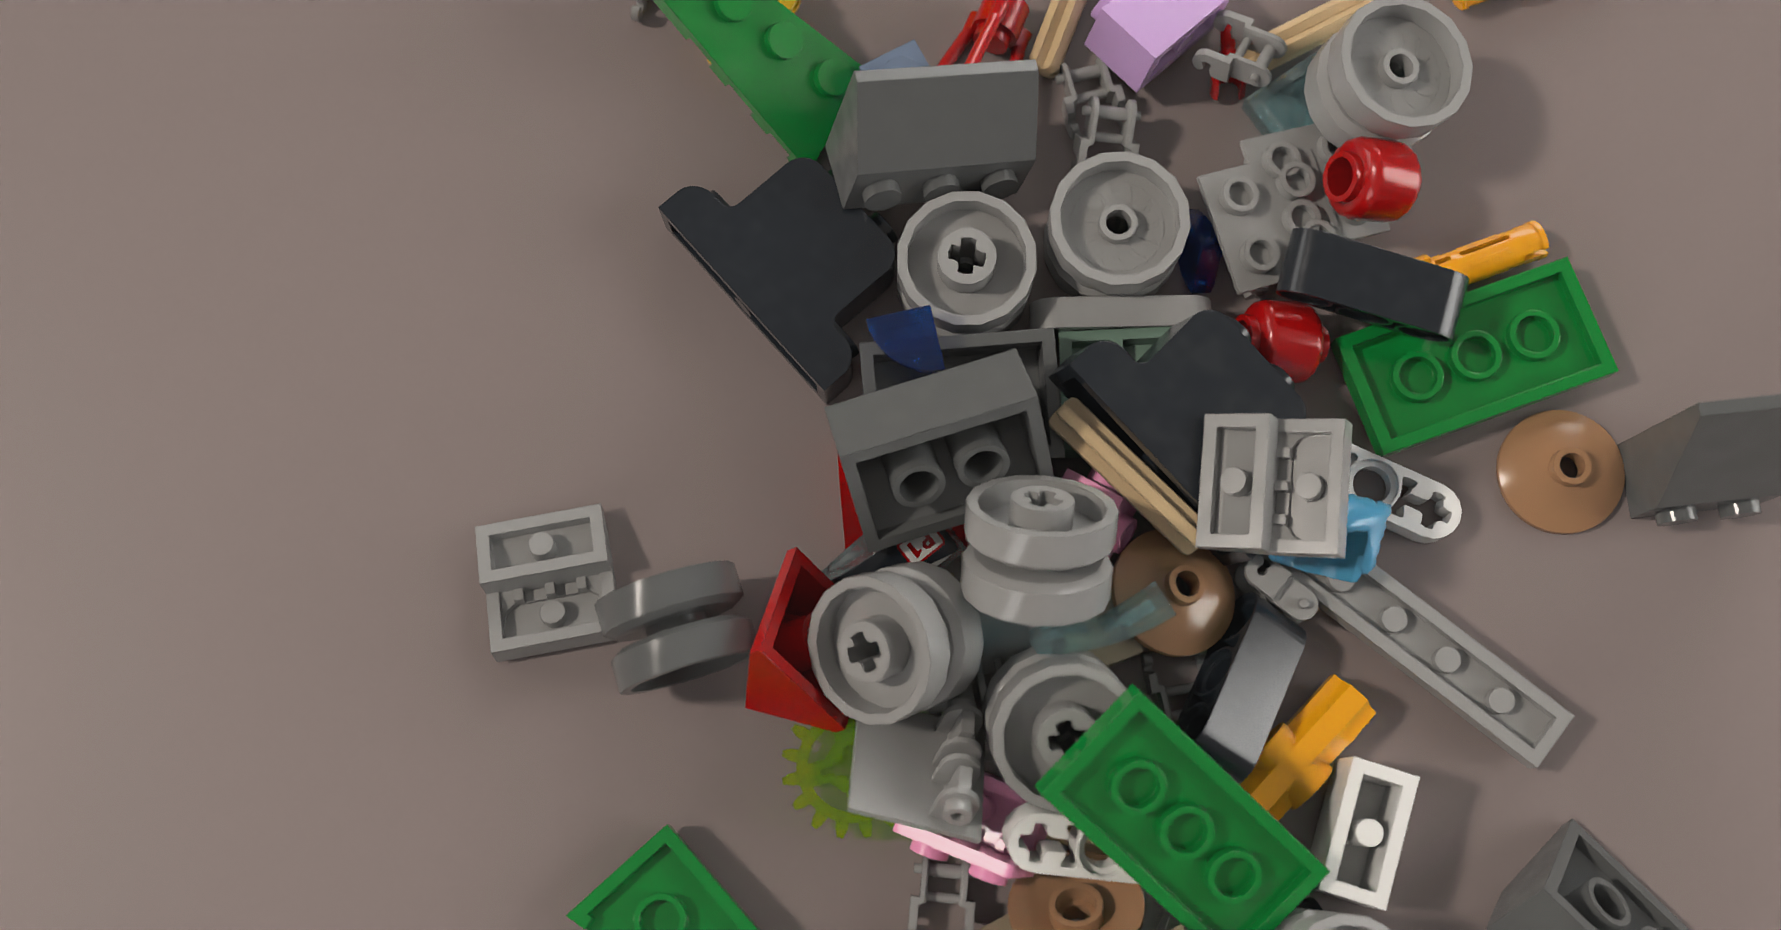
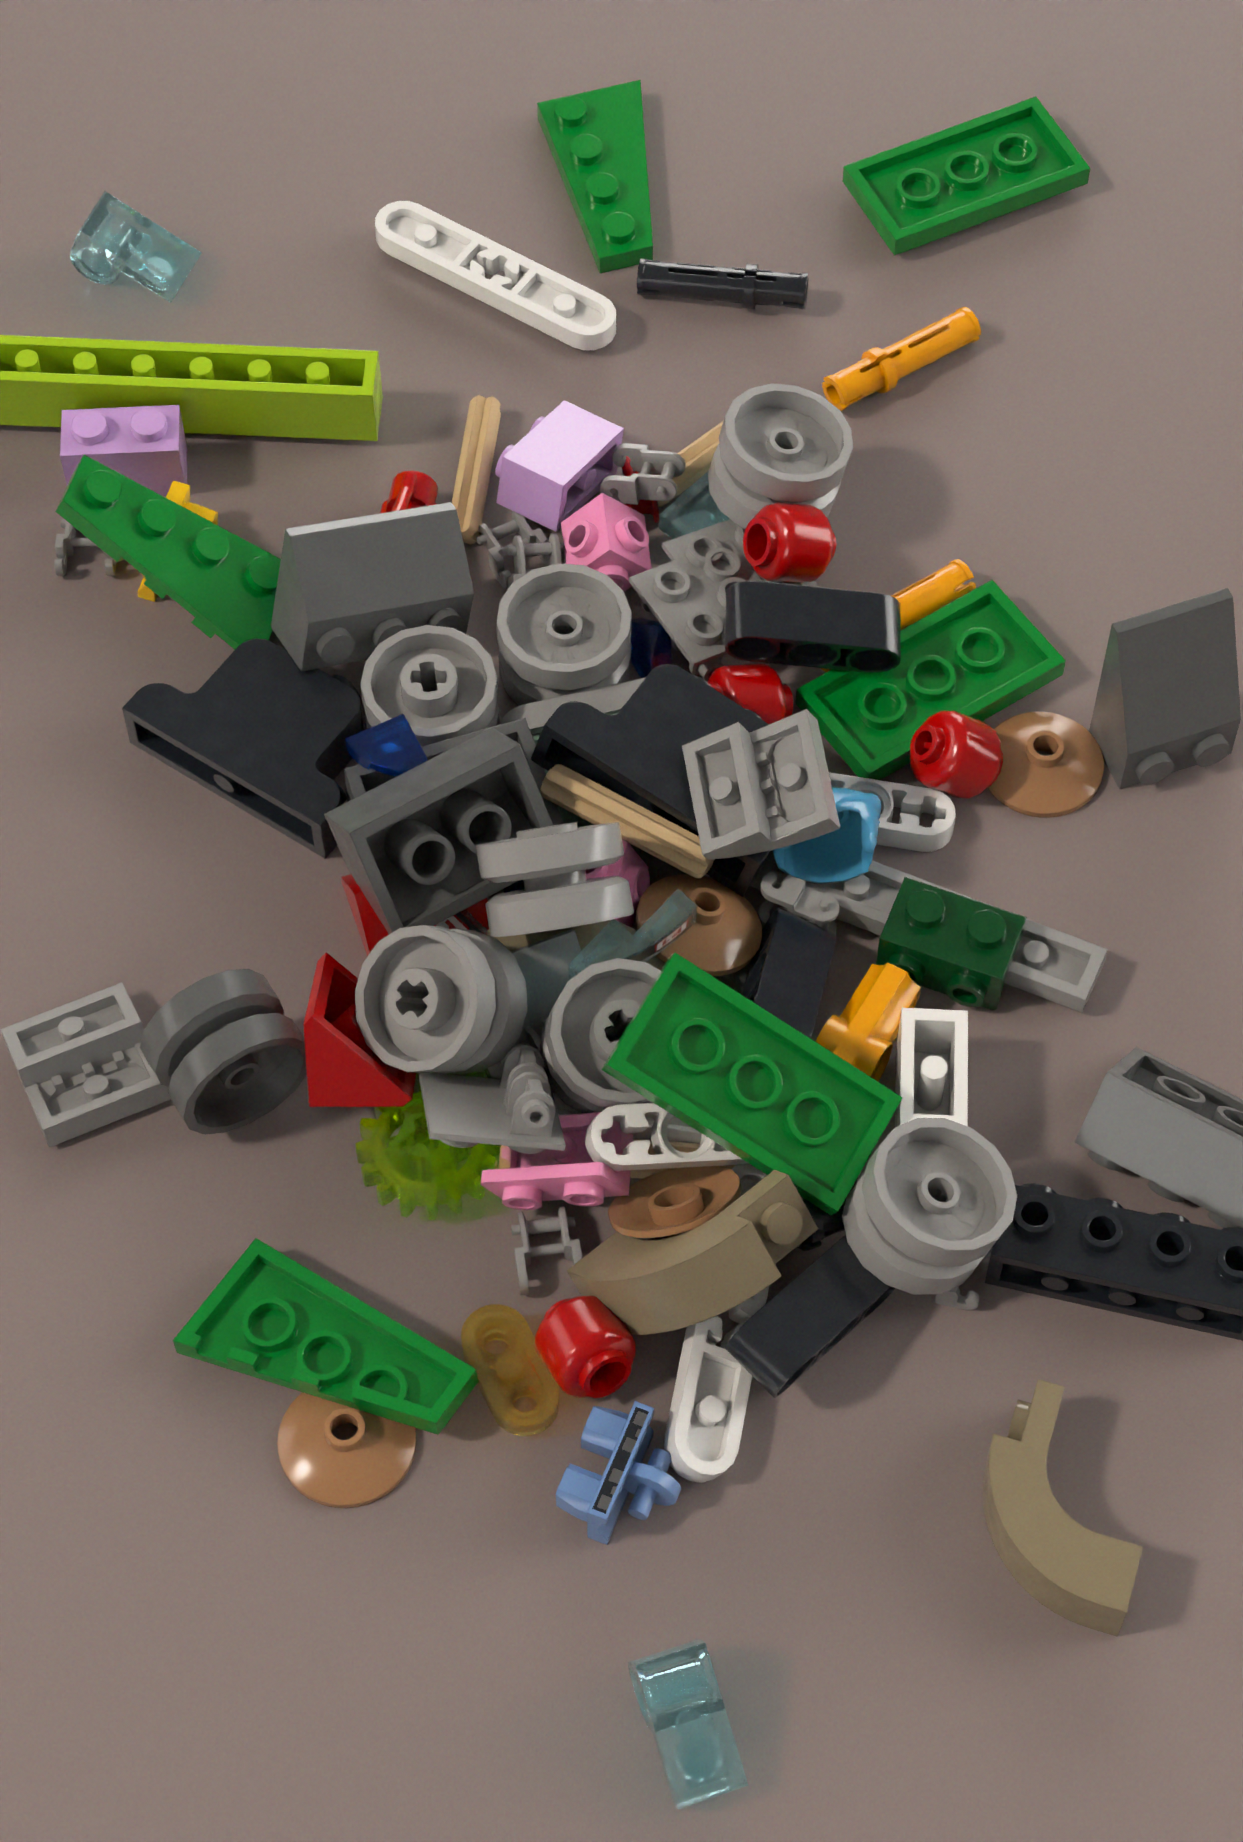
camera: 15 degrees left, 20 degrees down
(1183, 126) = (607, 539): none -> bright pink brick
(1419, 671) = (951, 943): none -> dark green bracket
(1479, 456) = (959, 755): none -> red head

